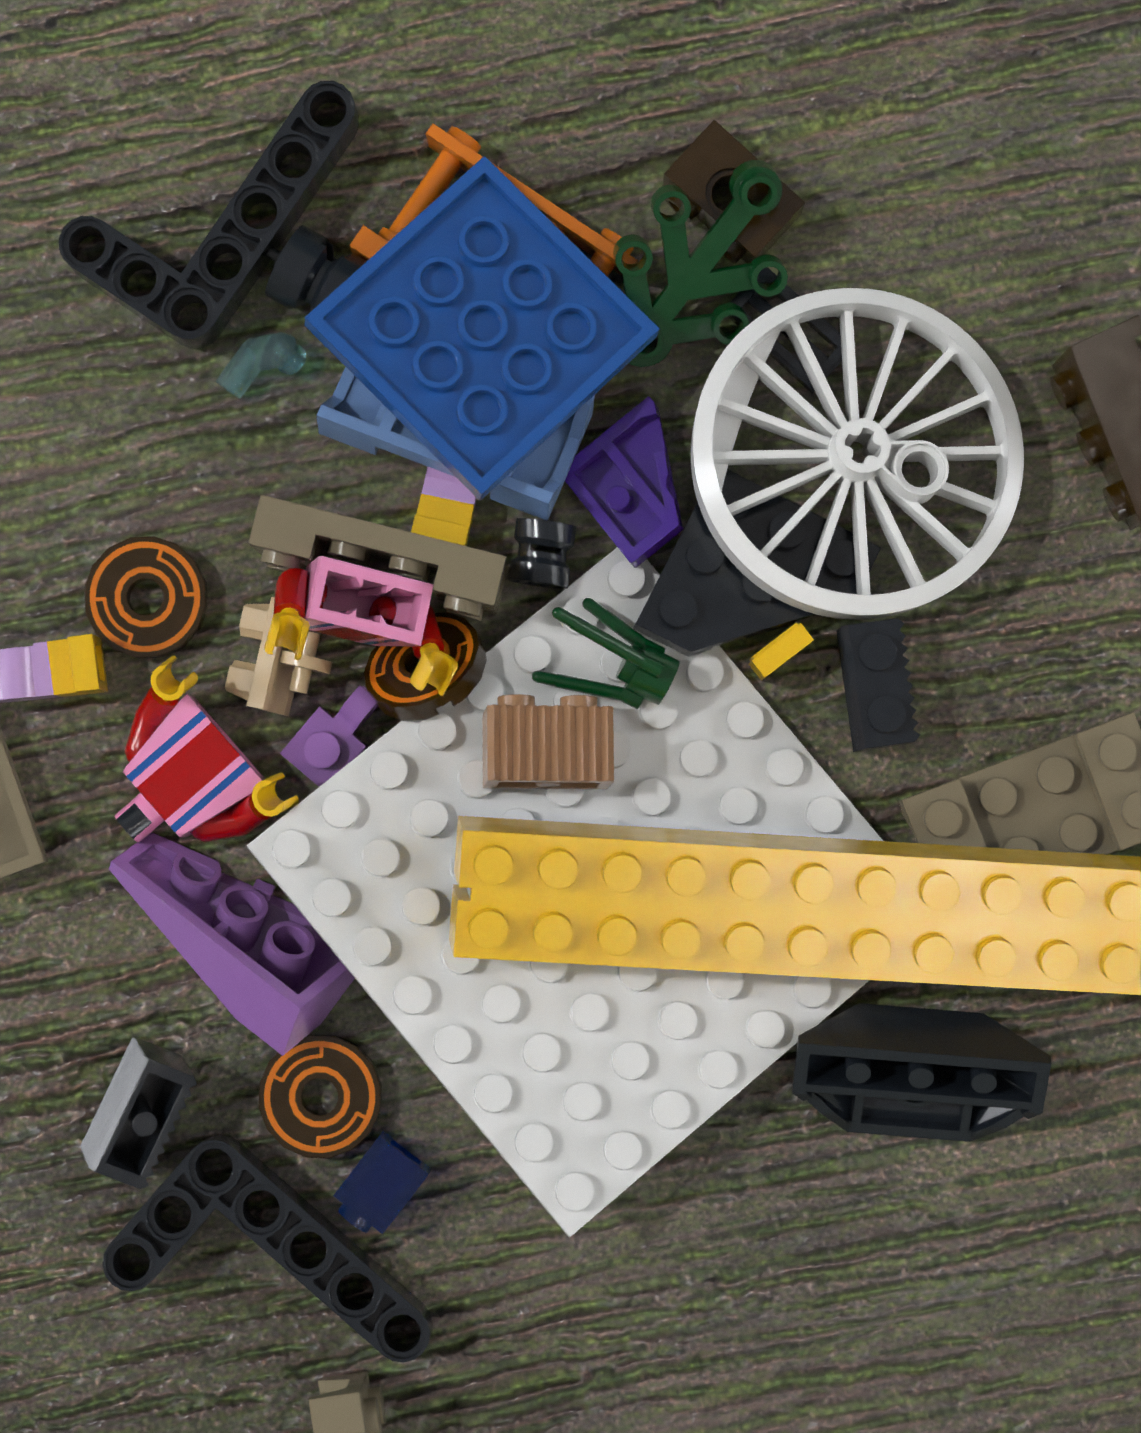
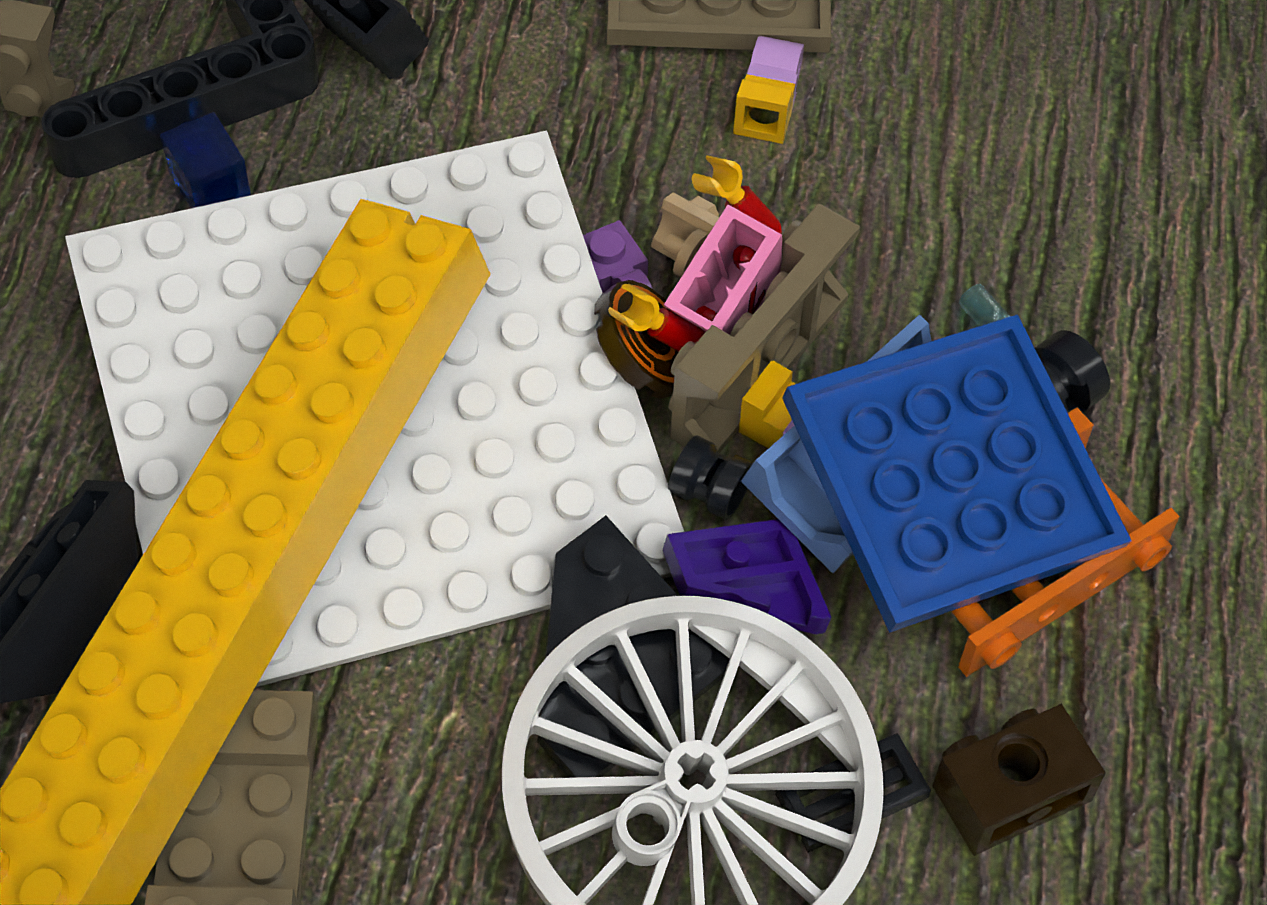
camera: 105 degrees right, 30 degrees down
(110, 589) = (810, 153): dark brown tile -> none
(191, 770) = (639, 148): torso -> none
(230, 232) = (1163, 399): black beam -> none
(238, 939) = (542, 102): medium lavender wedge -> none
(312, 1132) = (301, 131): dark brown tile -> none
(548, 744) = (520, 382): medium nougat brick -> none
(644, 664) = (554, 497): dark green plant -> none
(693, 274) = (944, 690): dark green plant -> none
(780, 650) = (519, 643): yellow tile -> none
(877, 684) = (439, 719): black brick -> none

